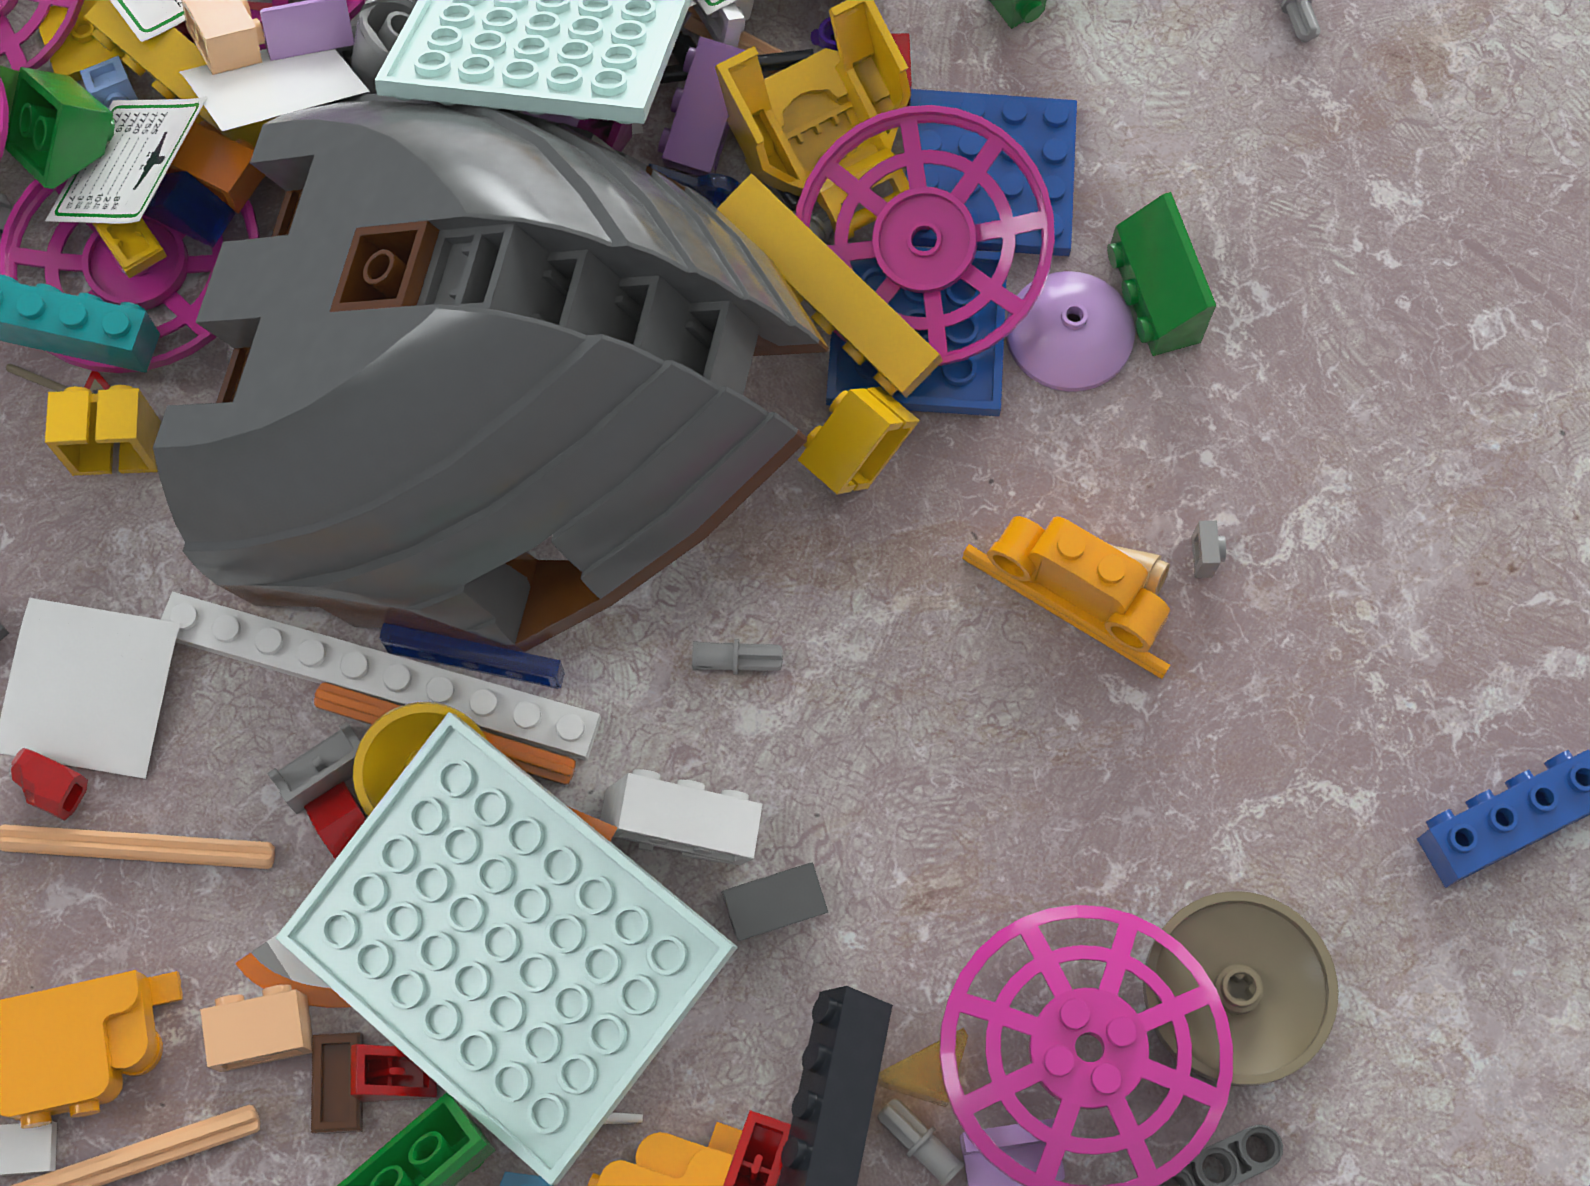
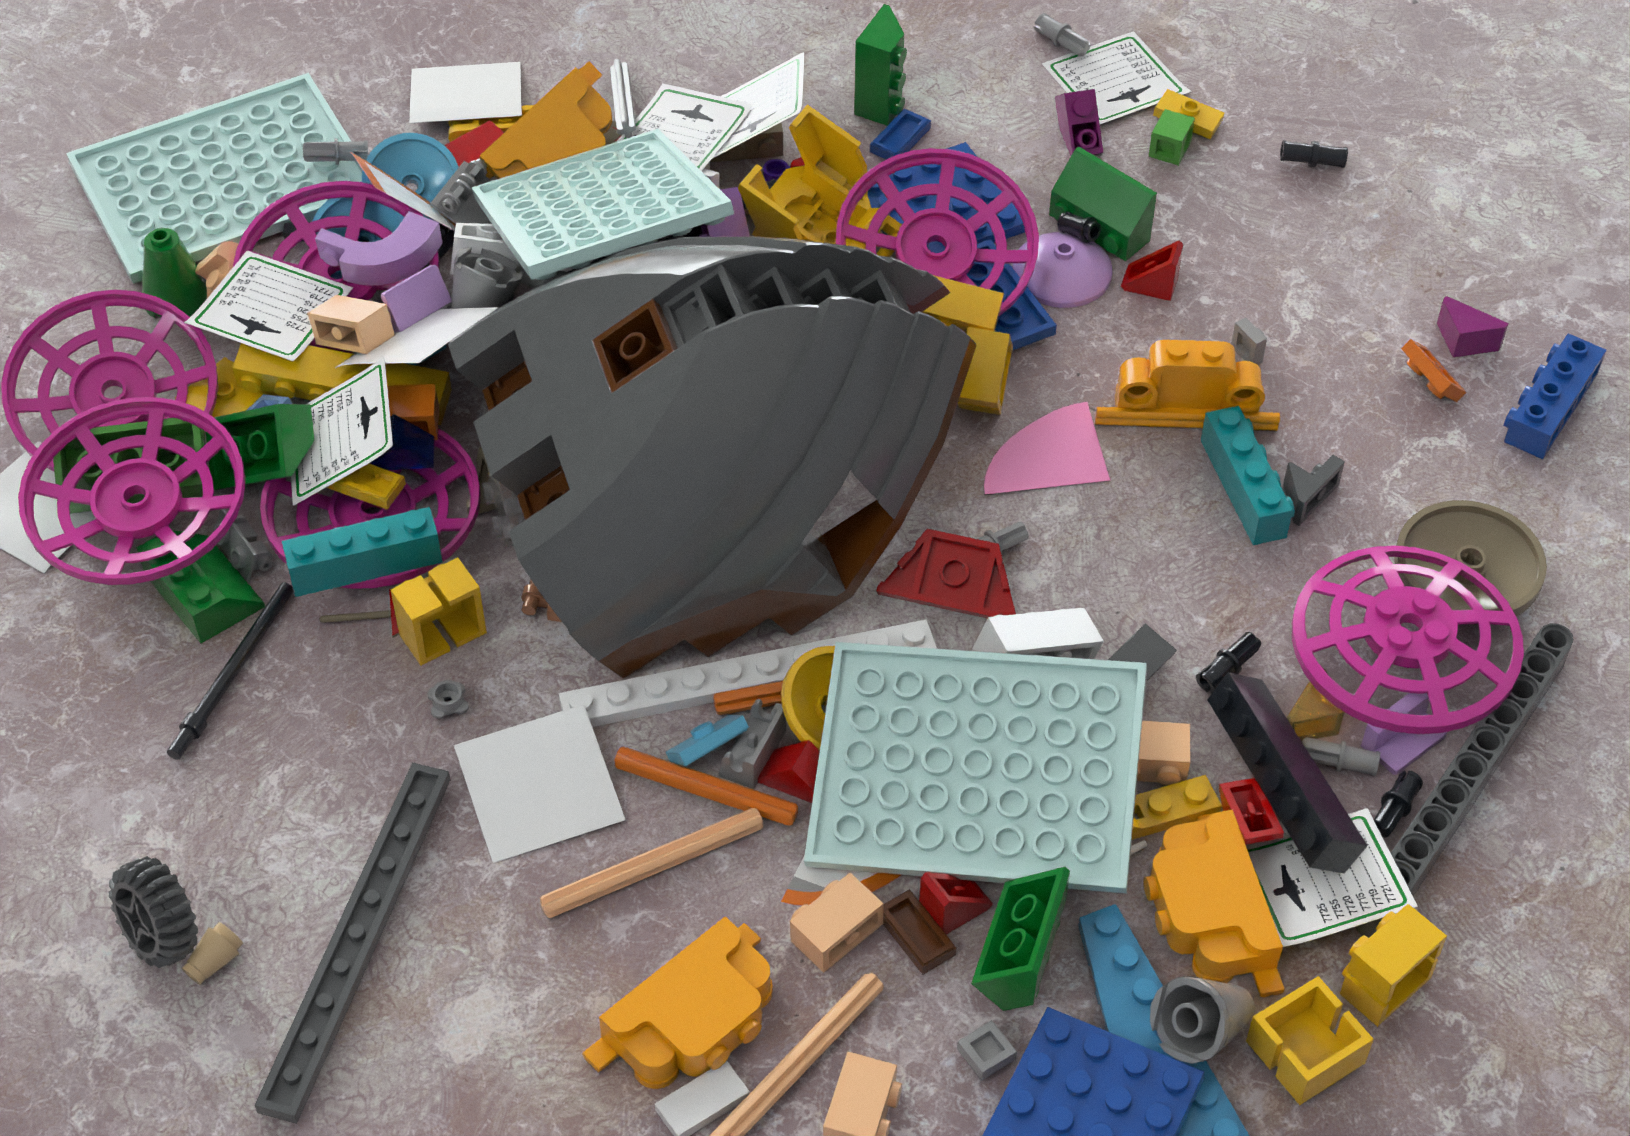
camera: 30 degrees left, 20 degrees down
(48, 783) = (555, 849): red rock -> none
(54, 529) = (445, 691): none -> light grey plate
(246, 787) = (705, 785): none -> orange axle
(276, 734) = (707, 738): none -> medium azure plate
(472, 656) = (812, 625): clear blue tile -> none
(660, 680) = (952, 575): none -> red wing
(696, 1092) = (1173, 806): none -> yellow plate
(724, 1026) = (1164, 752): none -> light nougat brick
(883, 953) = (1228, 661): none -> black axle
(885, 569) = (1049, 453): none -> bright pink sticker
(1012, 52) = (900, 135): none -> blue tile
(1072, 727) = (1247, 475): none -> teal brick
(1119, 300) = (1085, 228): none -> black pin
(1127, 788) = (1312, 488): none -> dark grey slope
(1165, 396) = (1155, 273): none -> red slope
(1225, 141) = (1079, 121): none -> magenta slope
(1321, 215) = (1171, 137): none -> bright green brick
(1322, 93) = (1121, 72): none -> white sticker
(1368, 190) = (1206, 118): none -> yellow plate
(1395, 704) = (1440, 380): none -> orange plate
(1477, 325) = (1313, 153): none -> black pin
(1480, 672) = (1469, 329): none -> magenta slope

